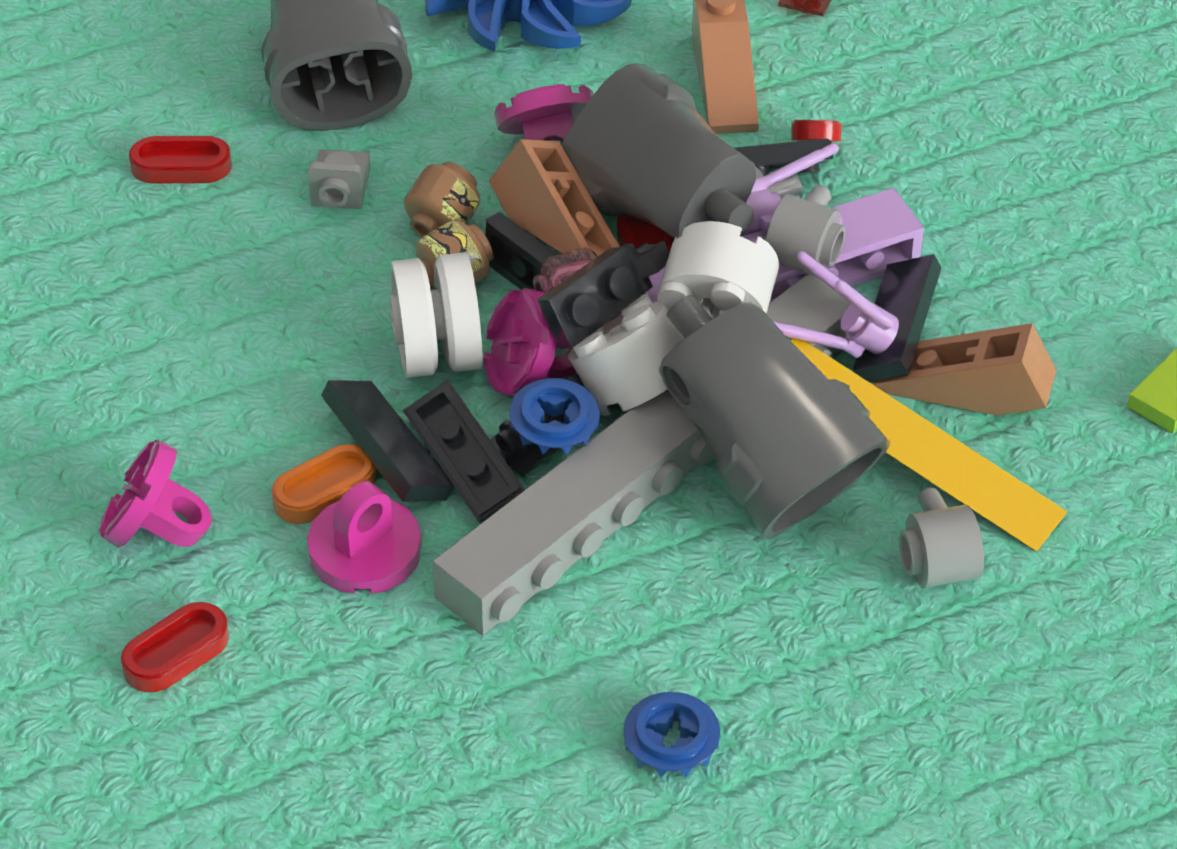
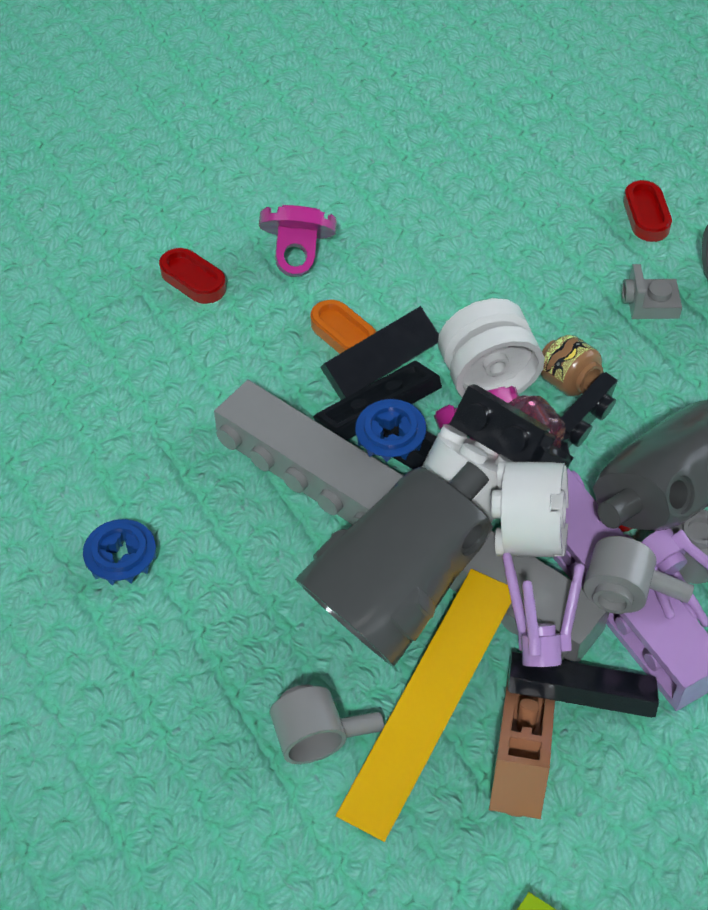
camera: 85 degrees right, 5 degrees up
(364, 541) = (287, 355): dark pink tile -> none
(440, 196) = (635, 353): medium nougat head -> none
(549, 198) = (627, 416): nougat slope -> none

